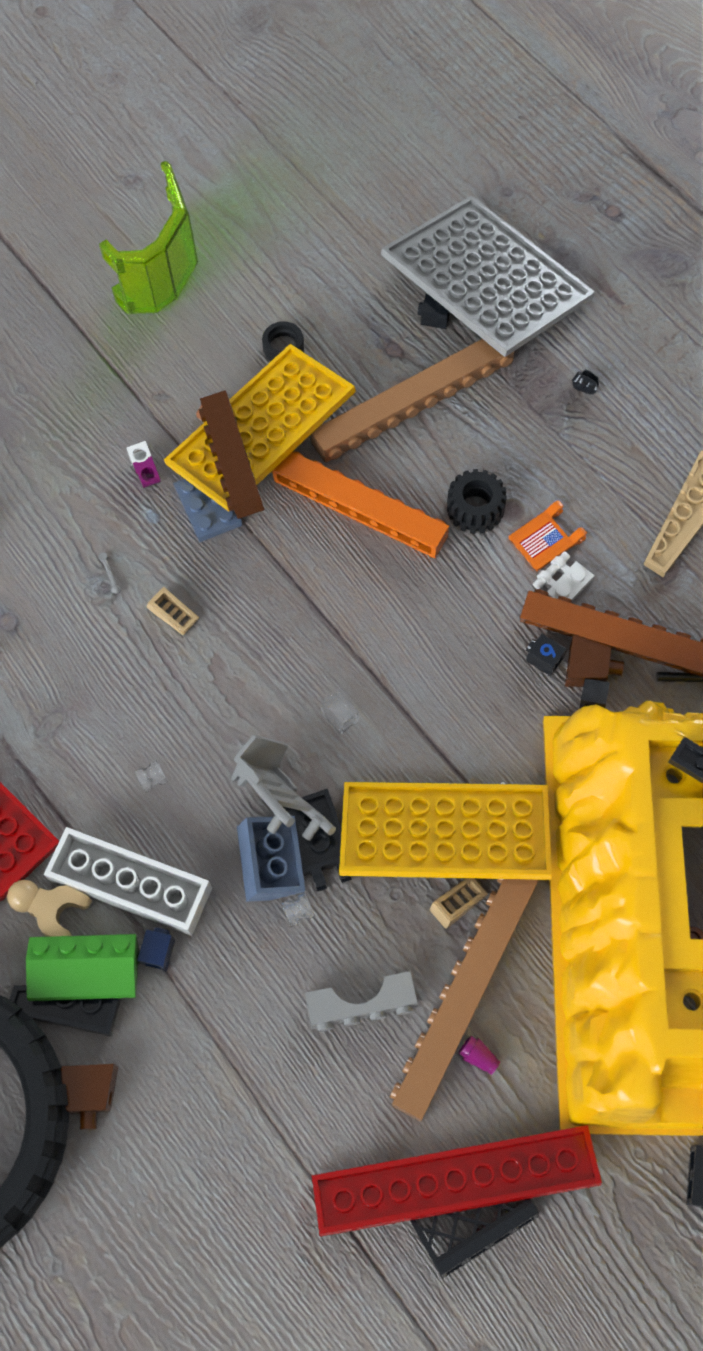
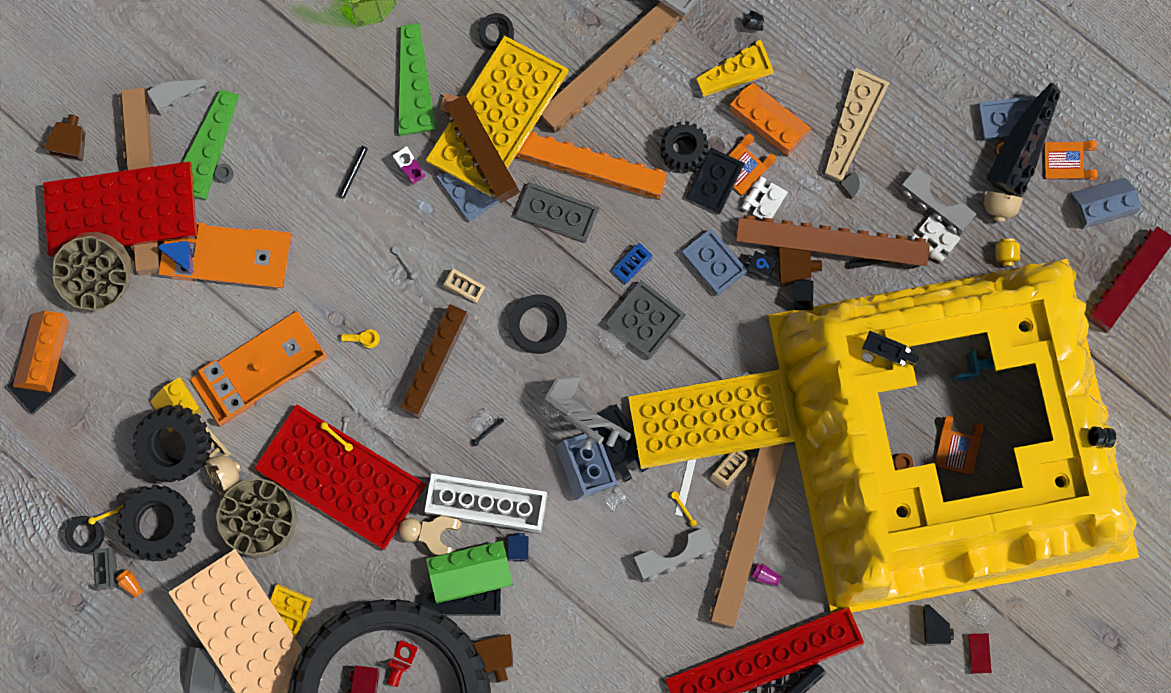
camera: 10 degrees left, 10 degrees up
(41, 650) = (368, 338): none -> yellow plate
(77, 463) = (353, 171): none -> black bar
(111, 692) = (434, 361): none -> reddish brown brick
(137, 802) = (475, 442): none -> black hinge
(172, 395) = (414, 97): none -> bright green wing
(246, 645) = (524, 305): none -> black tyre
(307, 549) = (557, 212): none -> dark grey tile
(379, 922) = (675, 495): none -> yellow hinge
(387, 692) = (645, 319): none -> dark grey plate
(389, 611) = (642, 262): none -> blue slope
(395, 913) = (685, 485): none -> white sticker
(488, 640) = (714, 261): none -> sand blue plate
(507, 547) = (715, 180): none -> black tile
(567, 429) = (743, 68): none -> yellow wing
(585, 490) = (769, 119): none -> orange slope
(674, 582) = (851, 184): none -> dark grey tile

